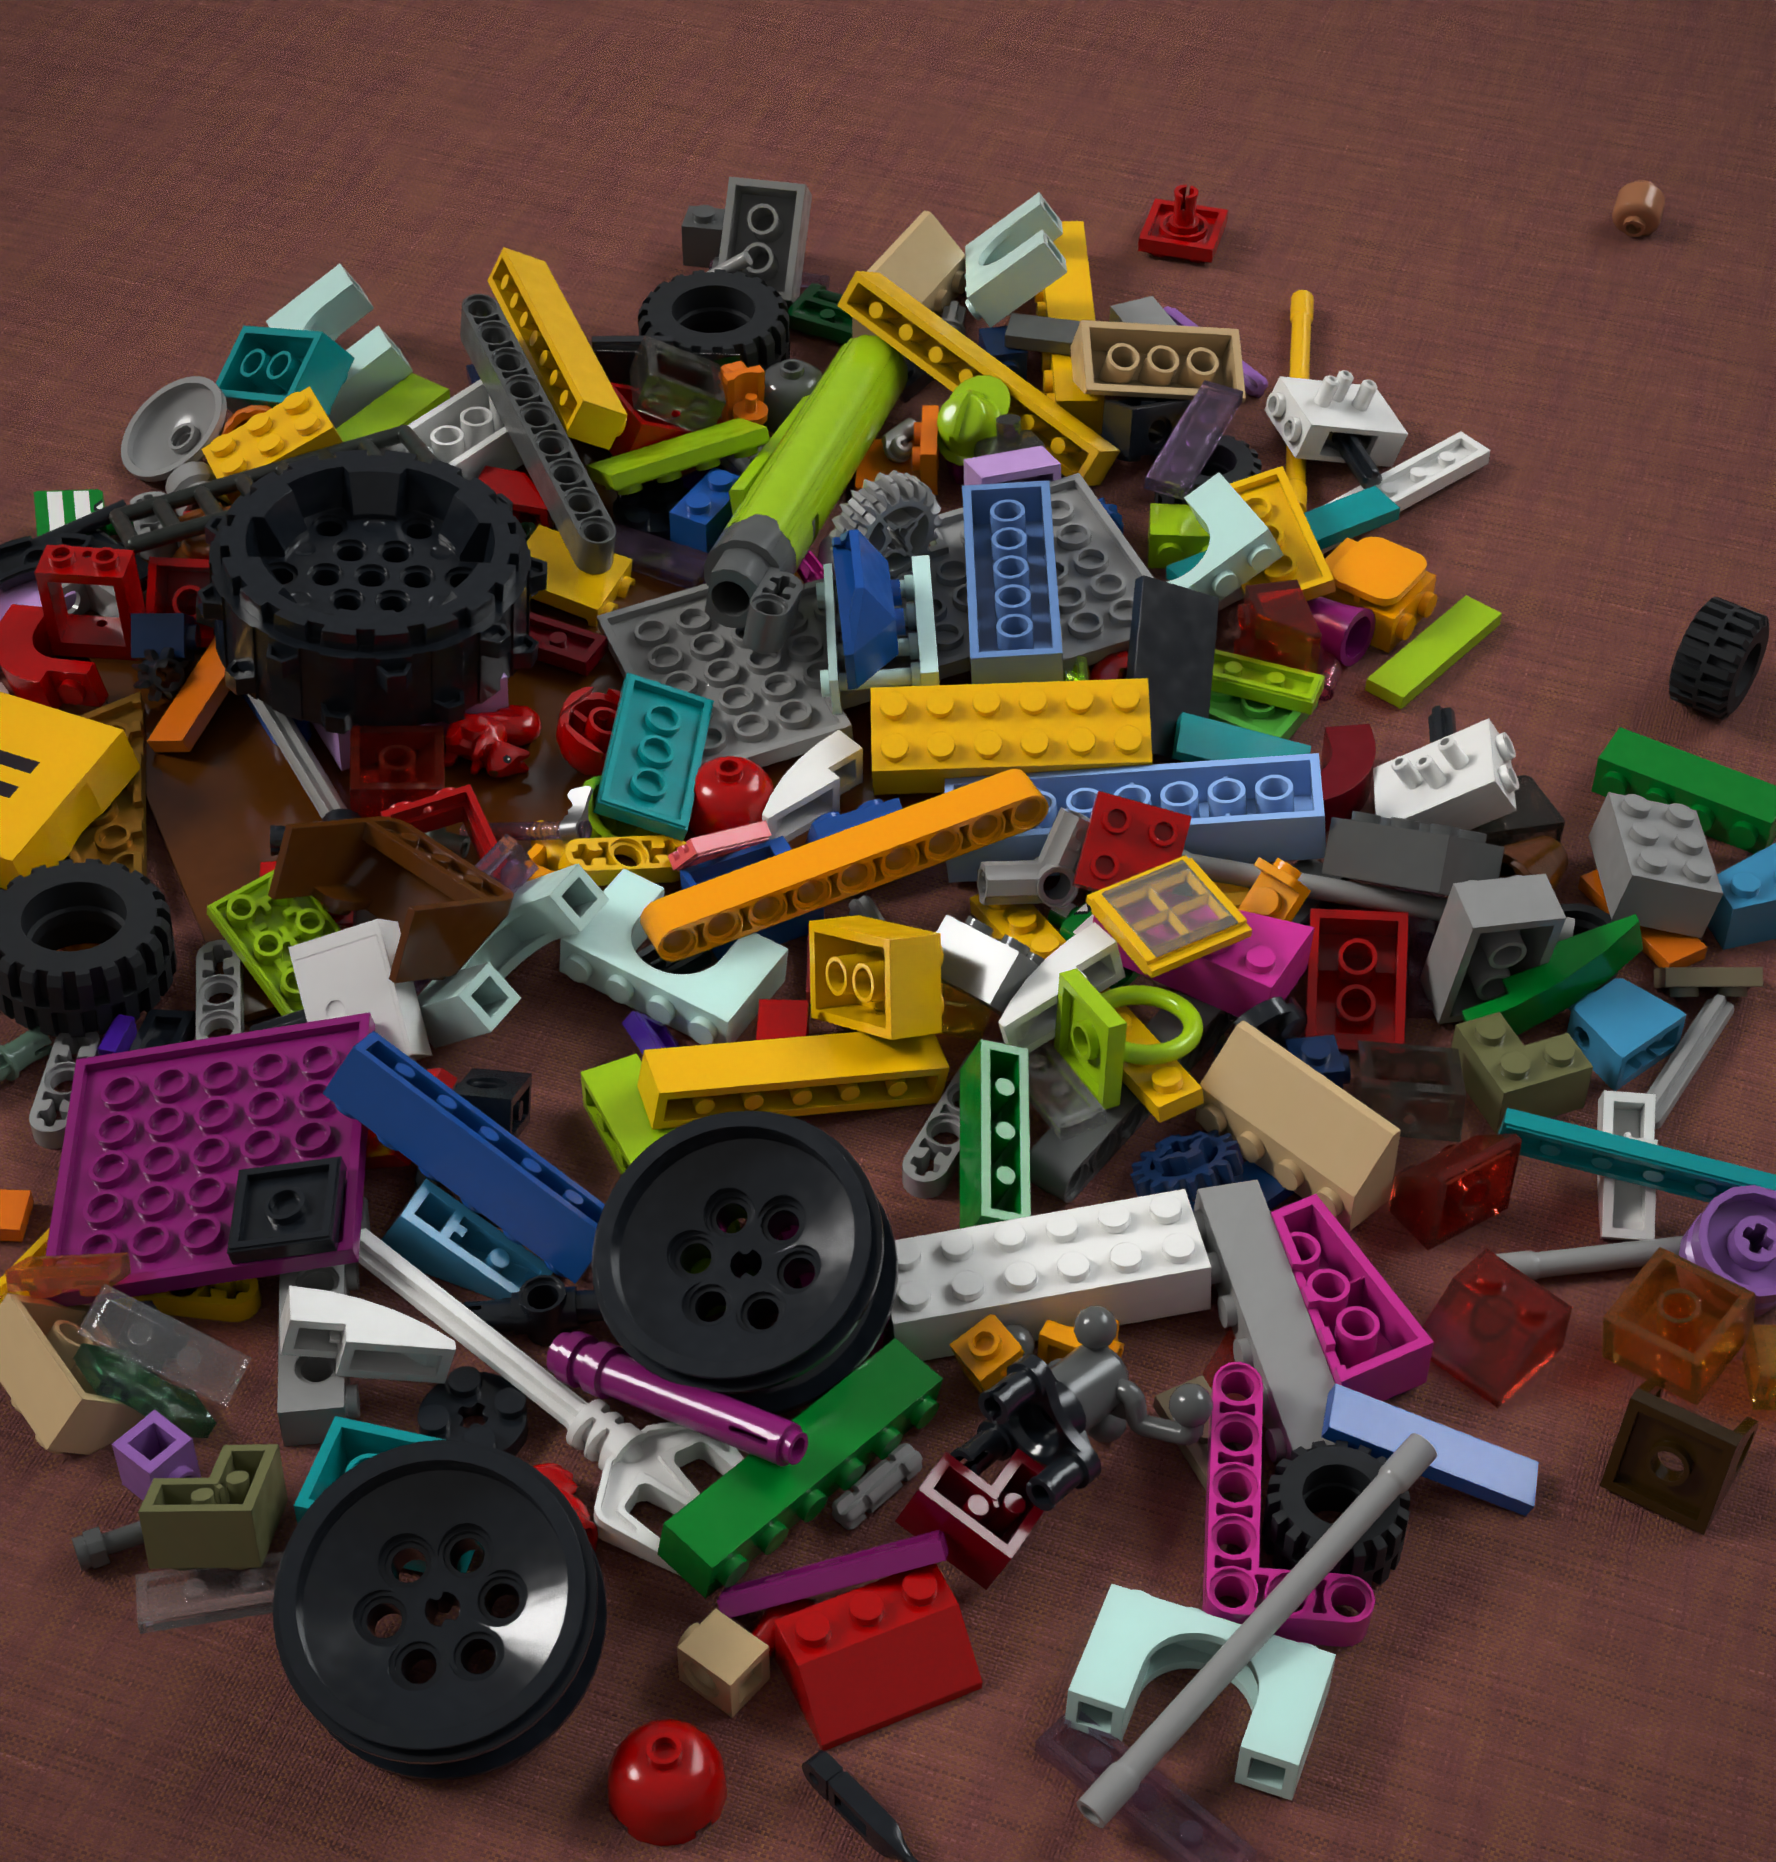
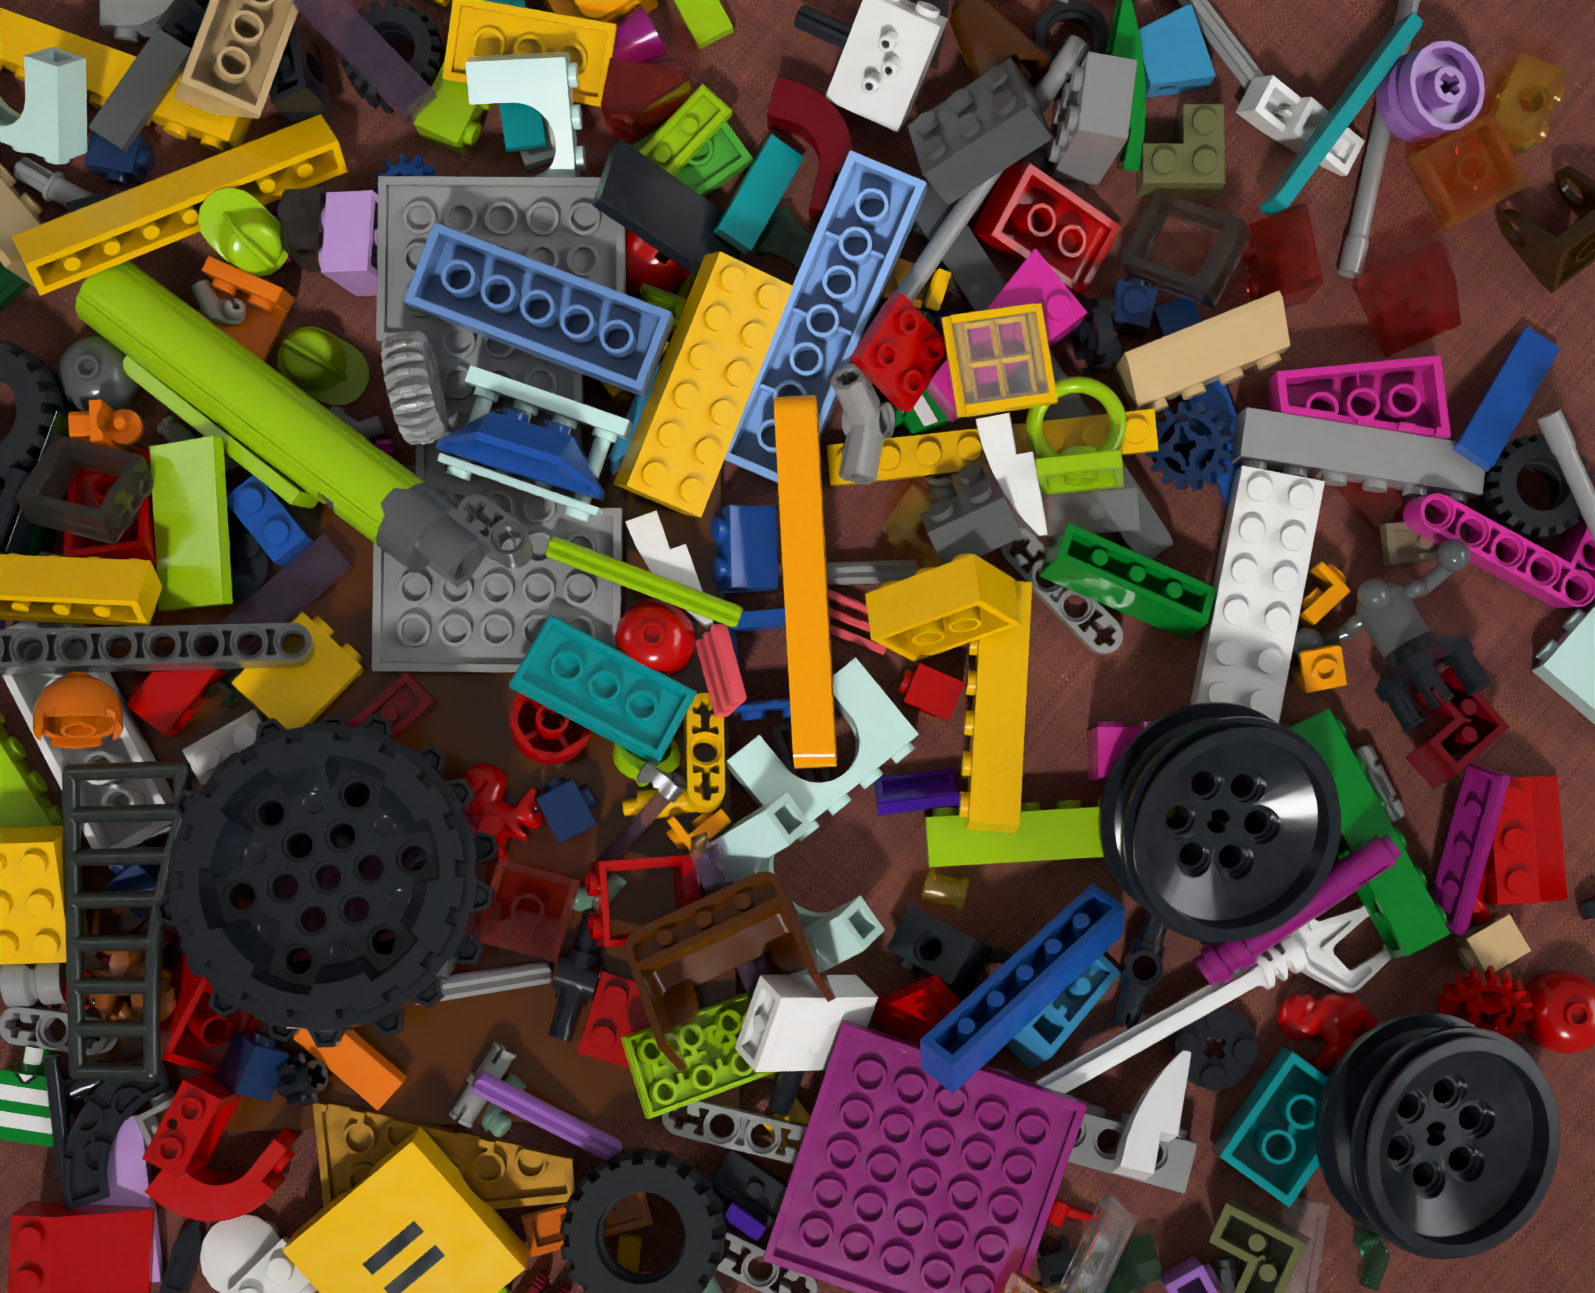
camera: 65 degrees left, 40 degrees up
(177, 823) = (494, 1115): none -> sand green arm
(186, 844) = (545, 1115): none -> medium lavender axle
(200, 807) = (469, 1104): none -> light grey pin
(215, 1324) = (1061, 1210): none -> red hand
(250, 1673) = (1375, 1256): none -> clear green arm
(287, 1210) = (1028, 1144): black tile -> none
(462, 410) = (77, 712): none -> orange cylinder
(516, 784) = (568, 808): none -> dark blue brick
(561, 1120) = (944, 890): none -> clear yellow bush
(638, 1666) = (1488, 1001): none -> red gear
(782, 753) = (644, 581): none -> lime axle
(1276, 891) = (969, 257): light orange bracket -> none

